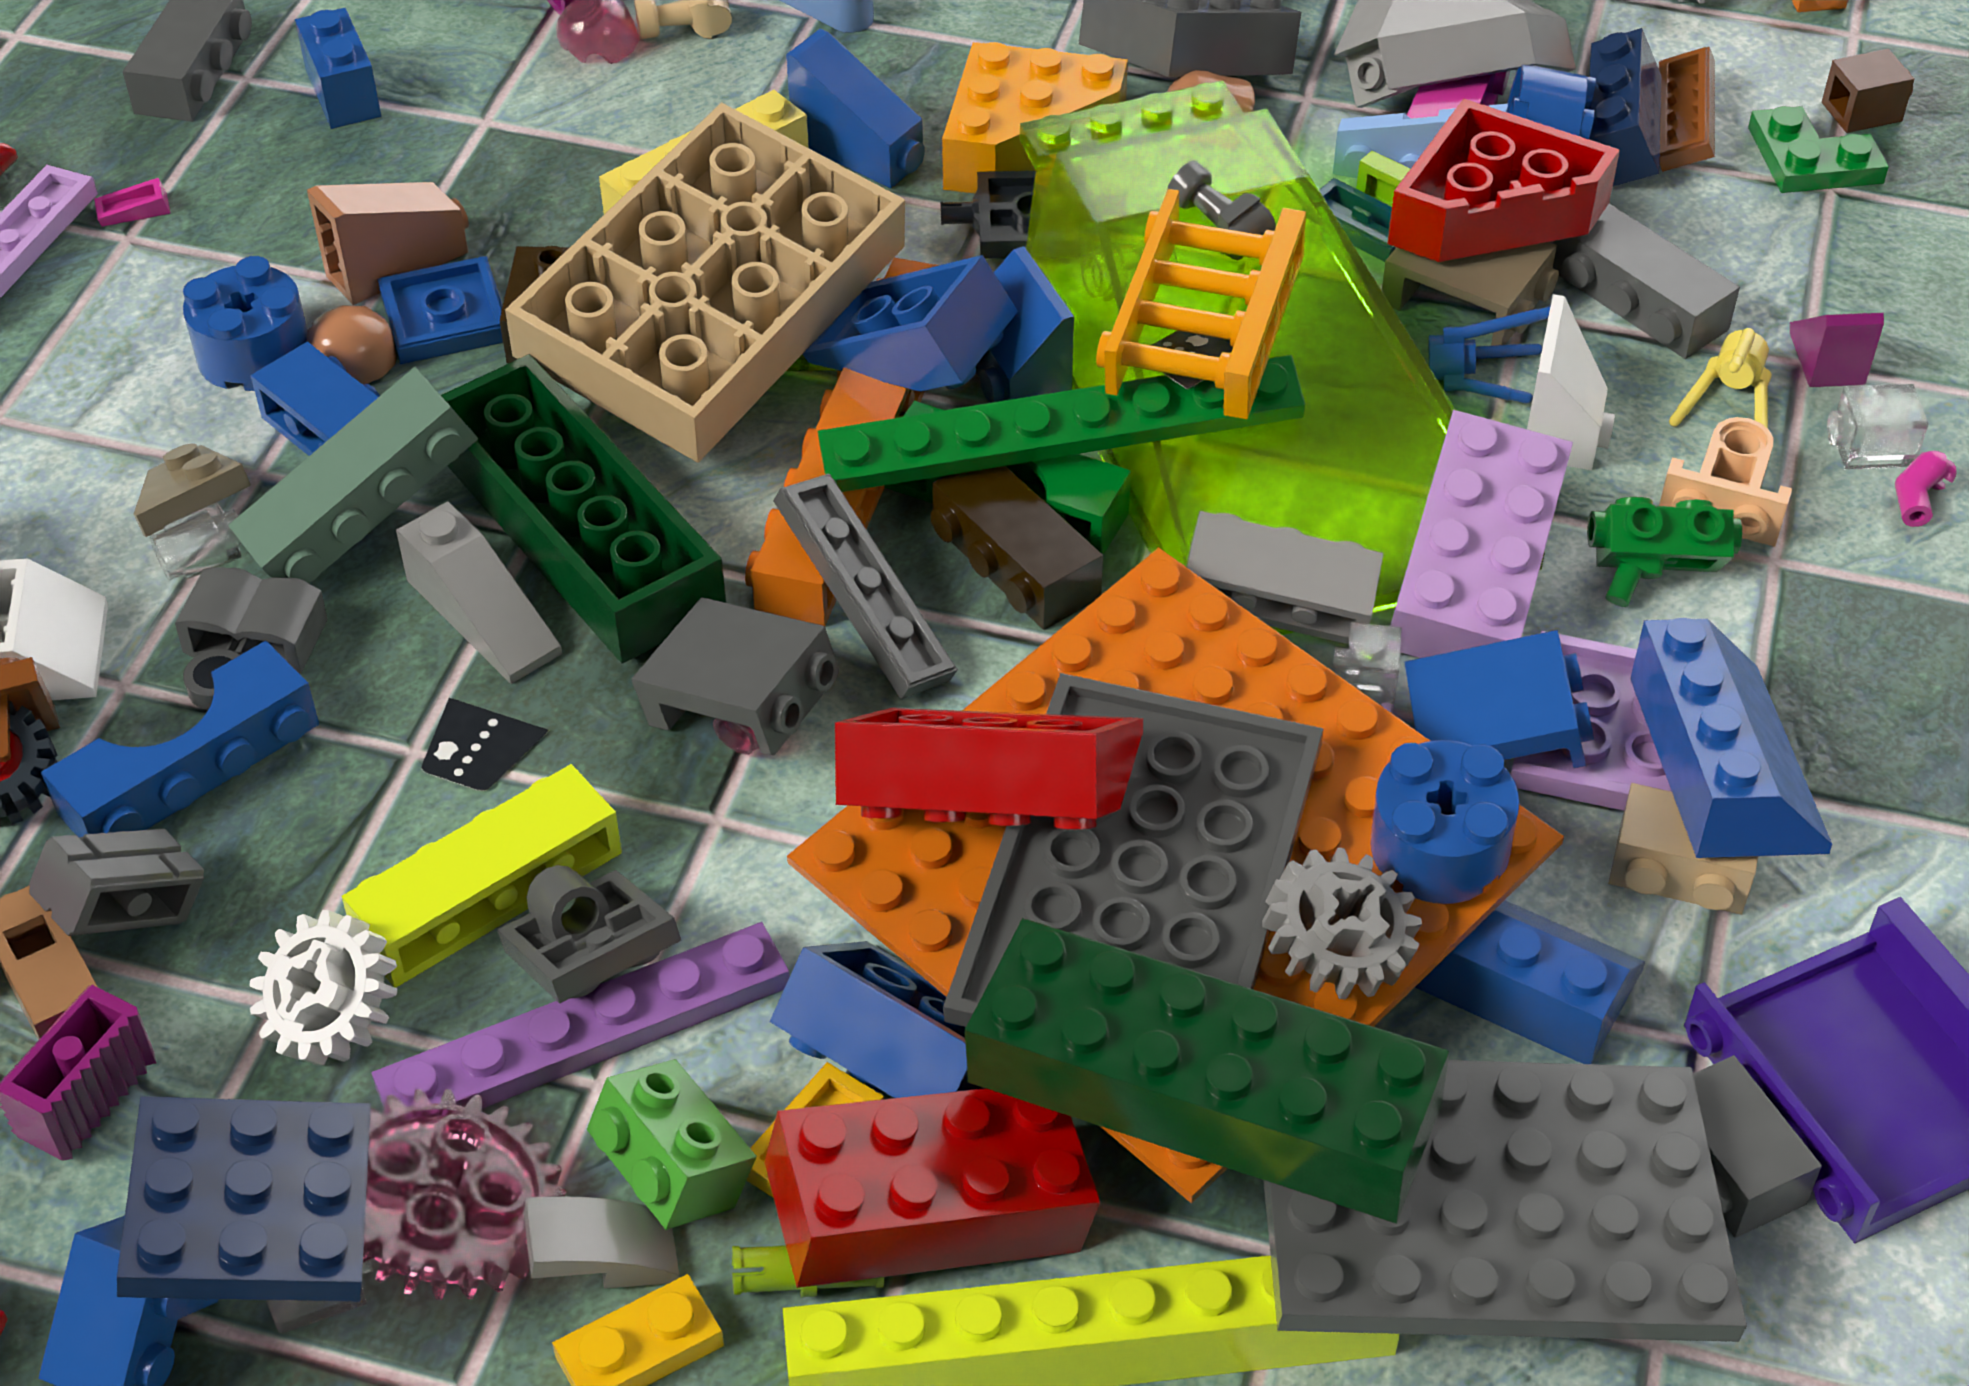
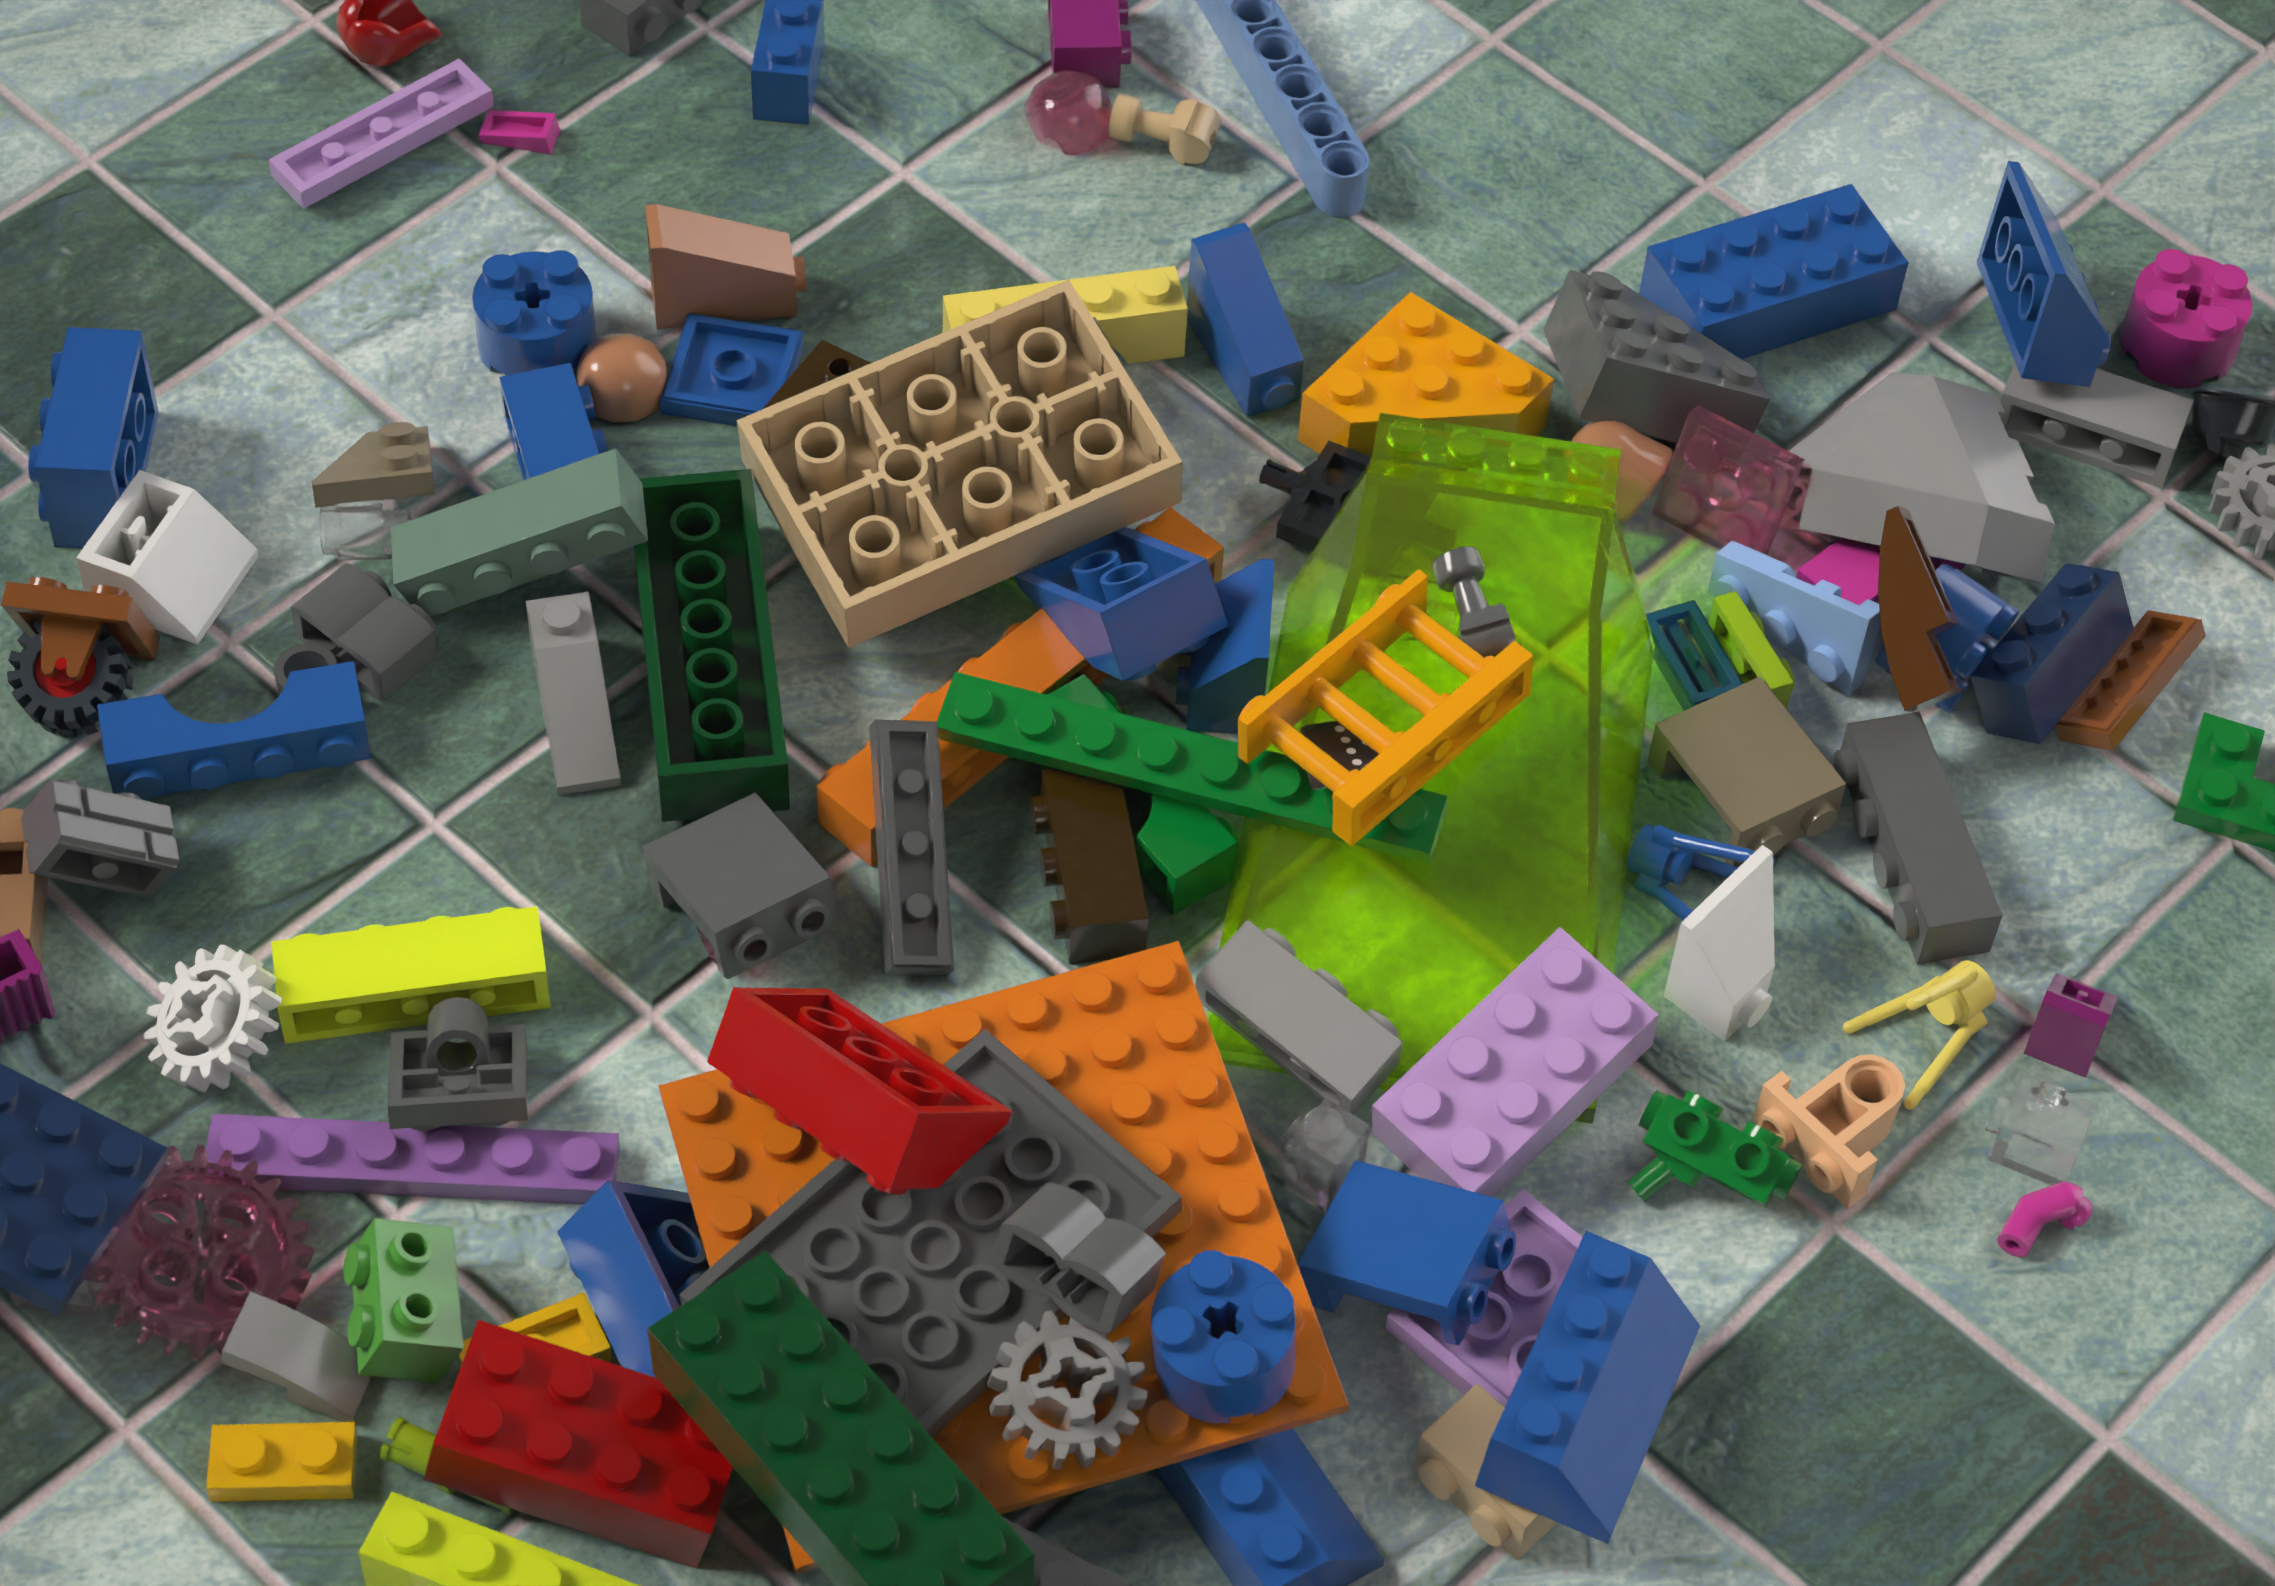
camera: 25 degrees right, 5 degrees up
(477, 745) = (492, 843): black sticker -> none
(1294, 804) = (1078, 1257): none -> dark grey brick
(1311, 80) = (1726, 483): none -> clear pink plate
(1499, 186) = (1806, 696): red brick -> none
(1528, 80) = (1912, 614): none -> reddish brown slope

